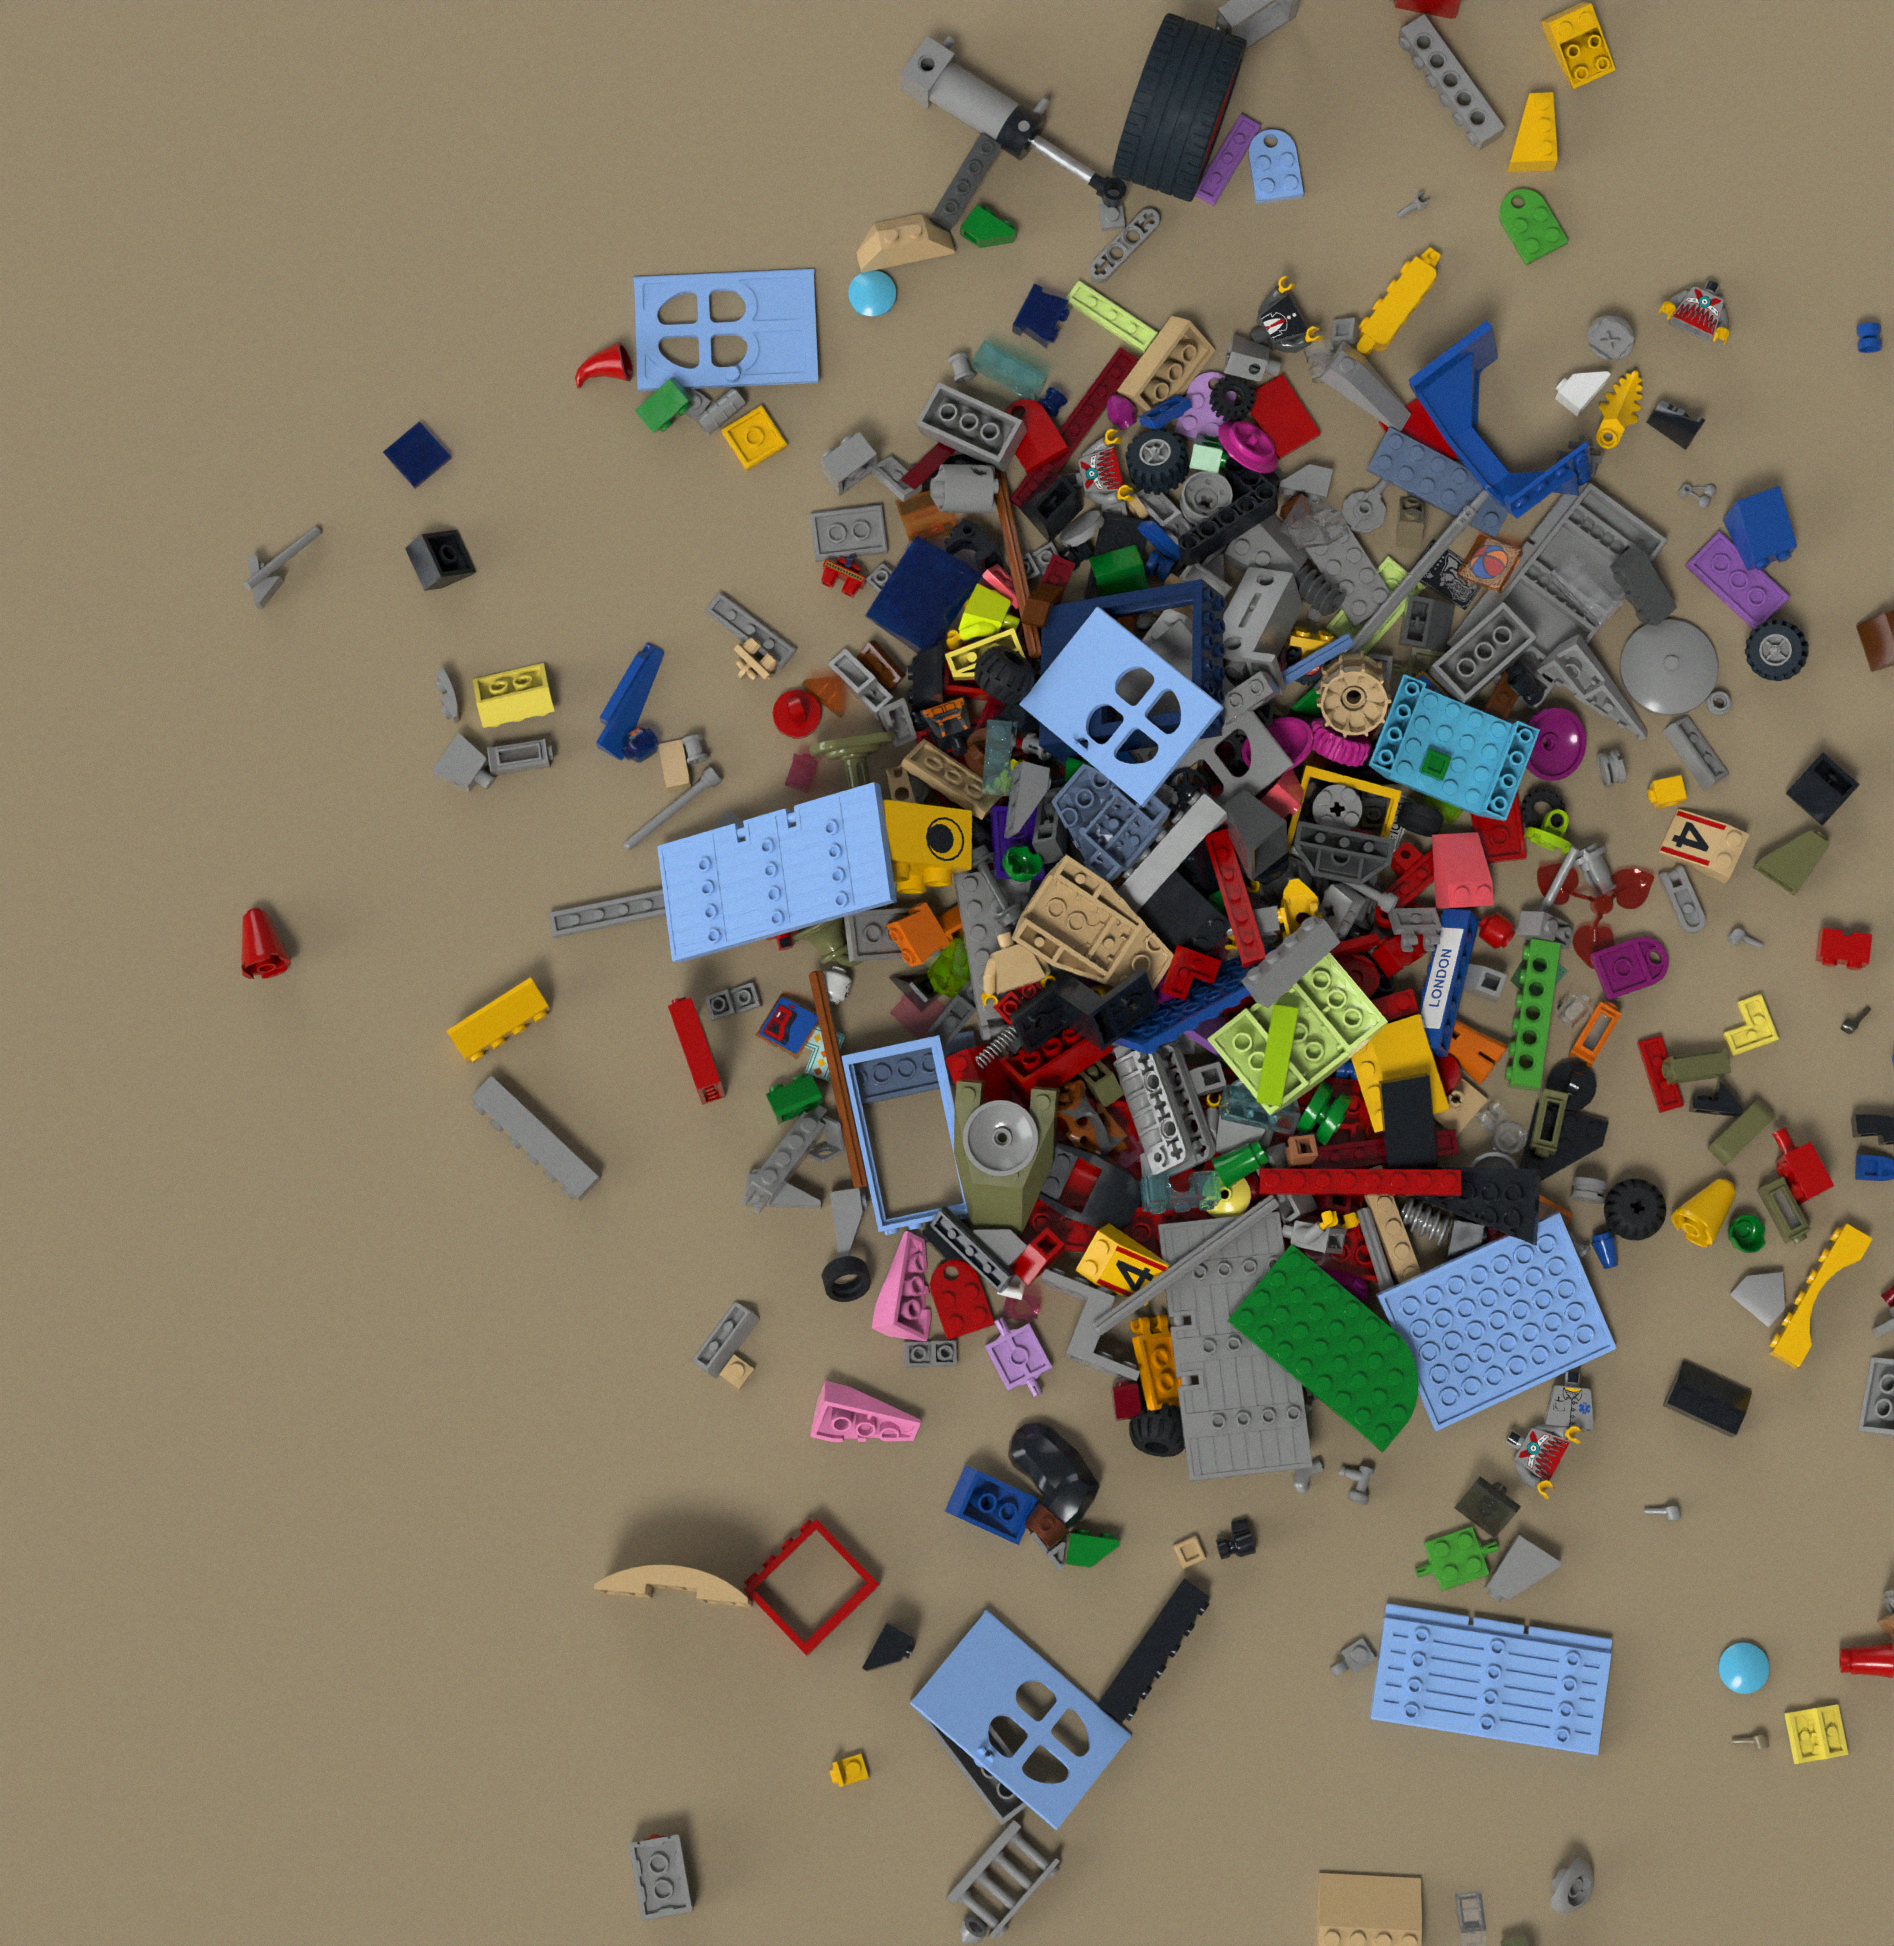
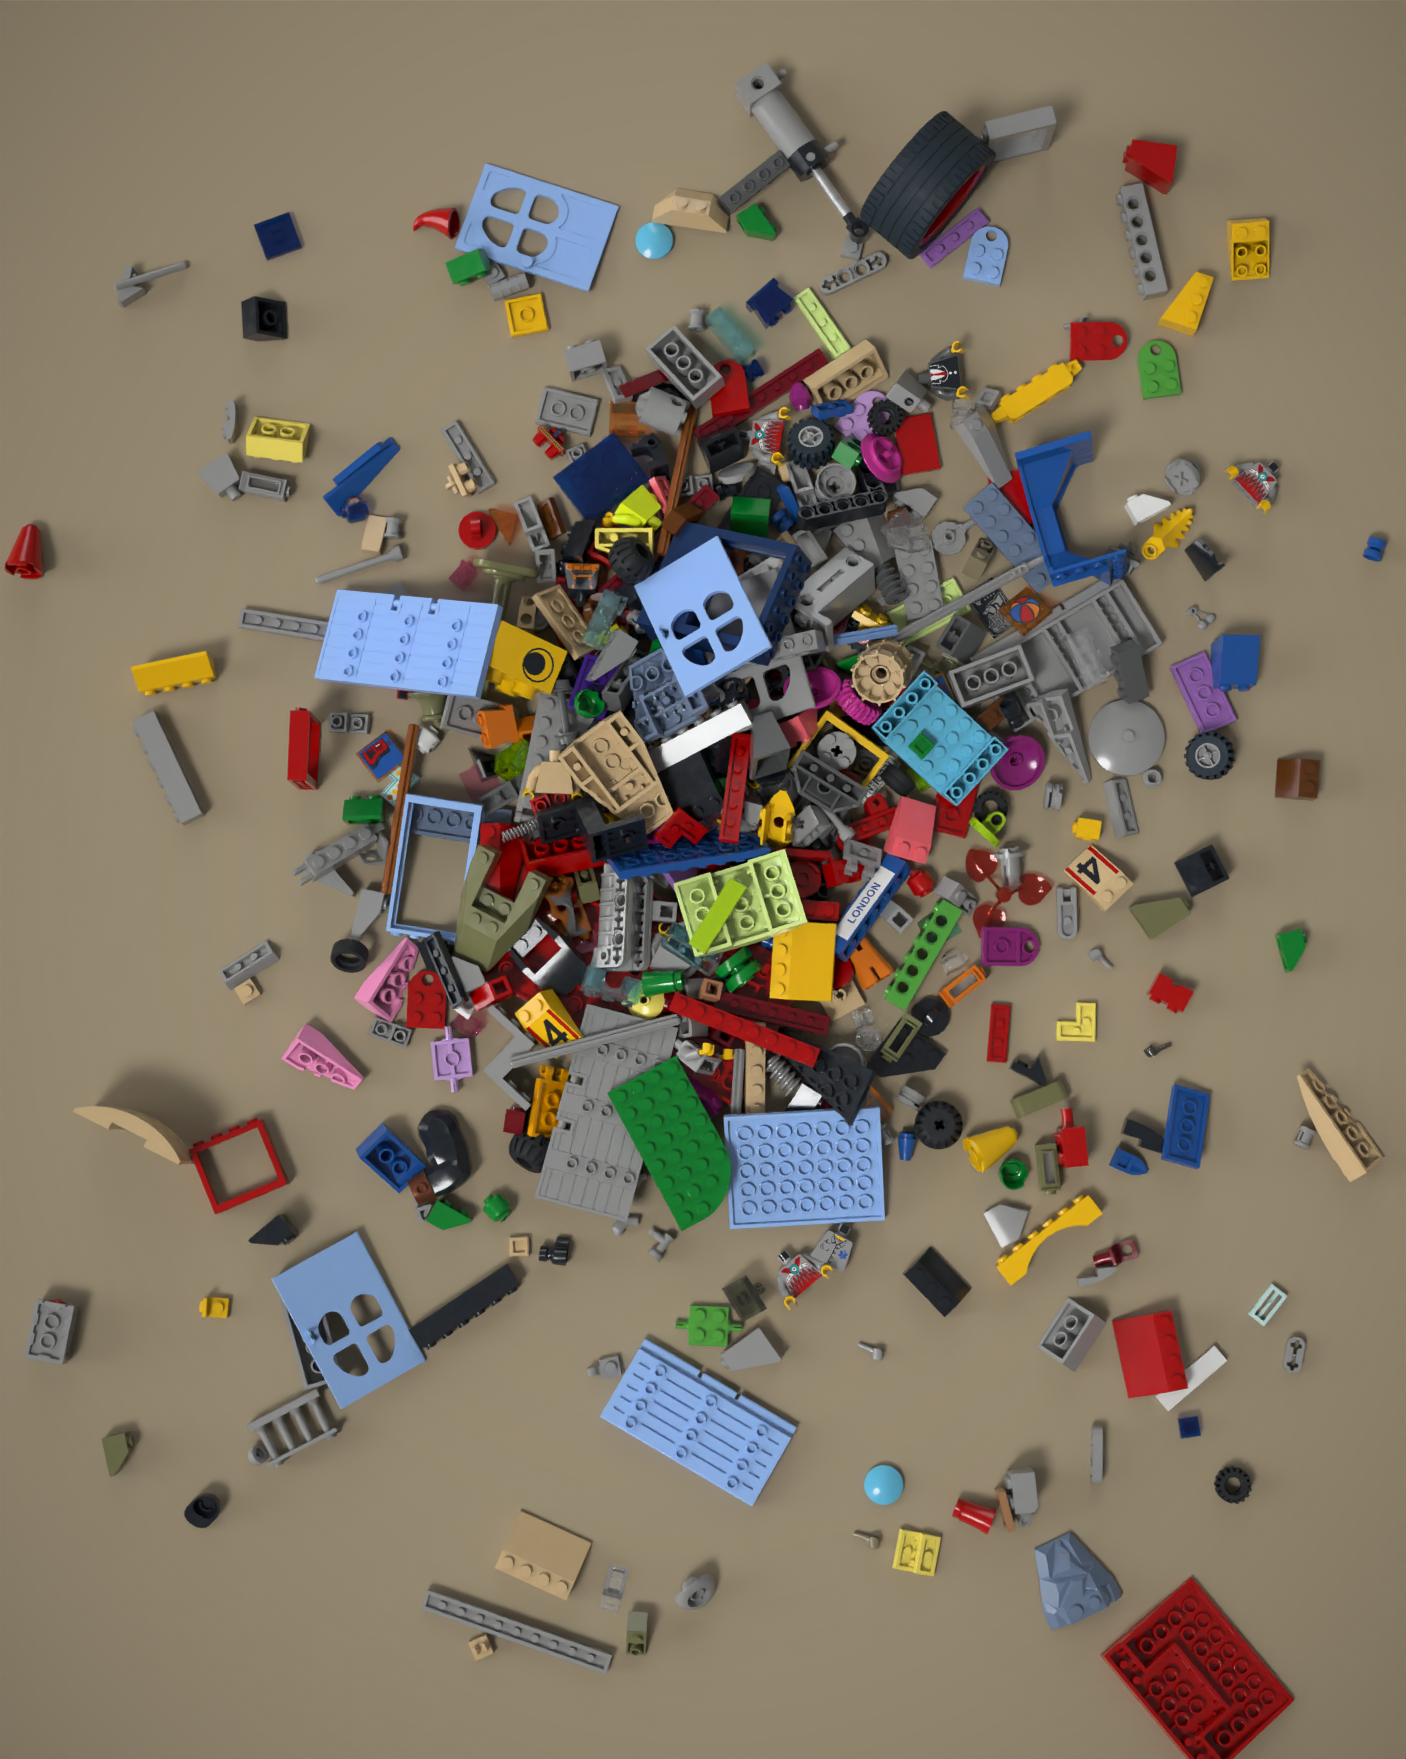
camera: 25 degrees right, 5 degrees up
(983, 1143) = (480, 898): light grey dish -> none
(1145, 1514) = (497, 1207): none -> green head
(1290, 961) = (754, 850): light grey brick -> none
(1408, 1122) = (795, 1000): black tile -> none
(1442, 217) = (1094, 341): none -> red plate
(1559, 879) = (981, 863): light grey bar -> none
(1696, 1066) = (1025, 1038): olive window -> none

